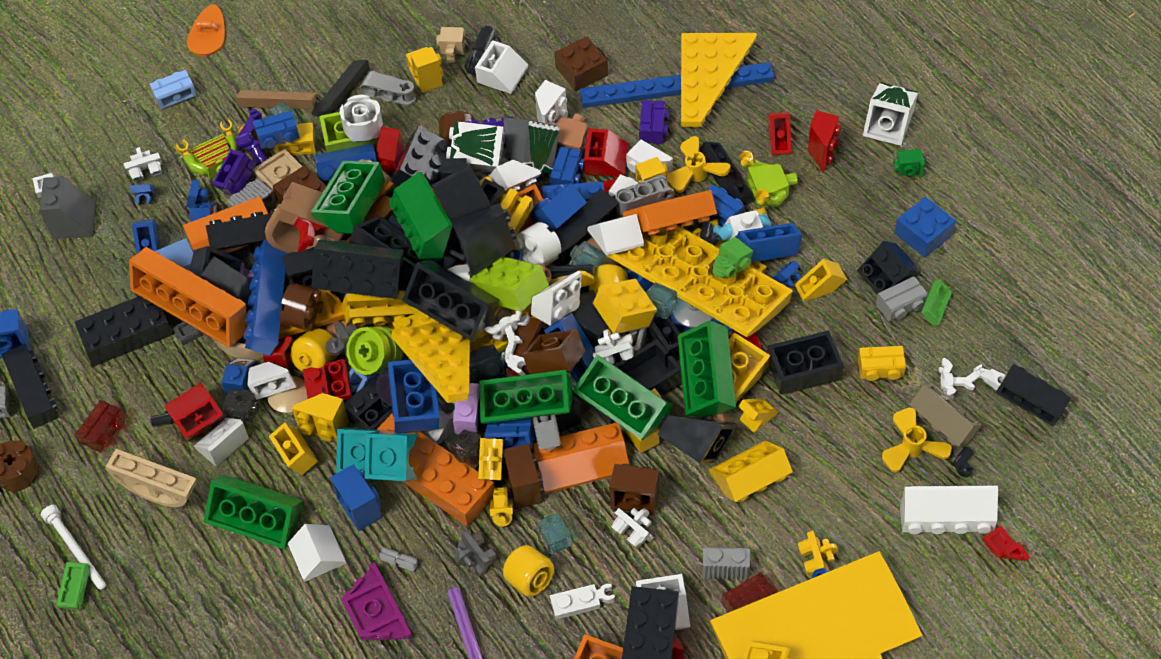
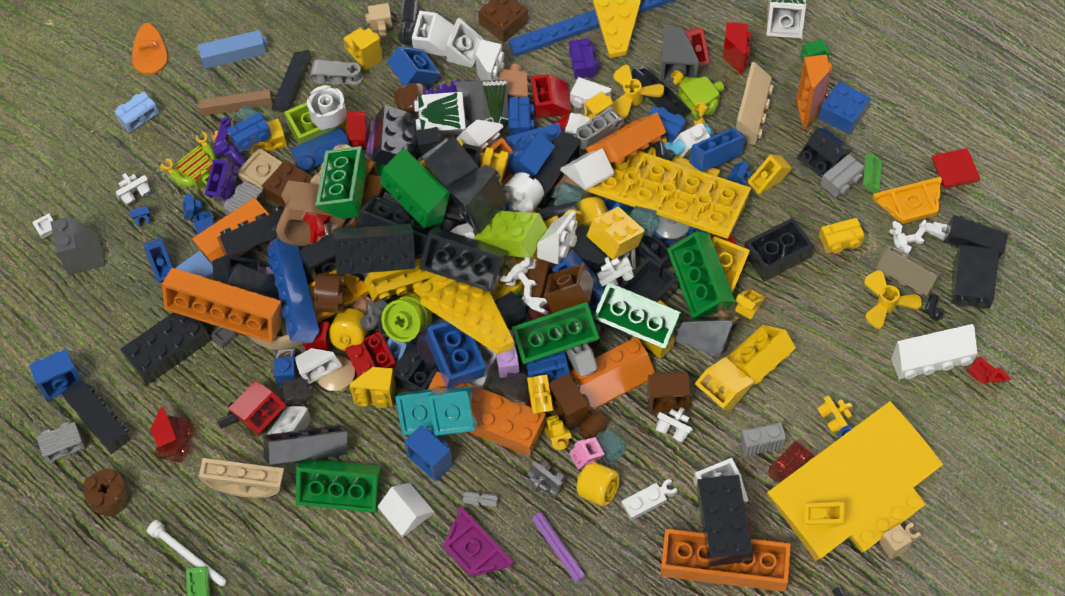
camera: 15 degrees left, 5 degrees up
(88, 412) = (162, 429): none -> red slope
(228, 460) = (305, 445): none -> brick
(290, 45) = (232, 49): none -> medium blue brick
(293, 448) = (357, 421): yellow brick -> none
(469, 95) = (413, 66): none -> blue brick
(525, 533) = (586, 452): none -> bright pink brick
(526, 82) = (462, 44): none -> white slope
(543, 507) = (592, 425): none -> reddish brown brick
(700, 493) = (725, 383): none -> yellow slope
(732, 258) = (693, 170): bright green brick -> none
(753, 135) = (677, 54): none -> dark grey slope
(823, 203) = (753, 104): none -> tan slope
(892, 196) = (812, 88): none -> orange slope
(973, 341) = (911, 201): none -> light orange wing
(1019, 436) = (974, 276): none -> black slope
(1034, 316) = (955, 168): none -> red tile

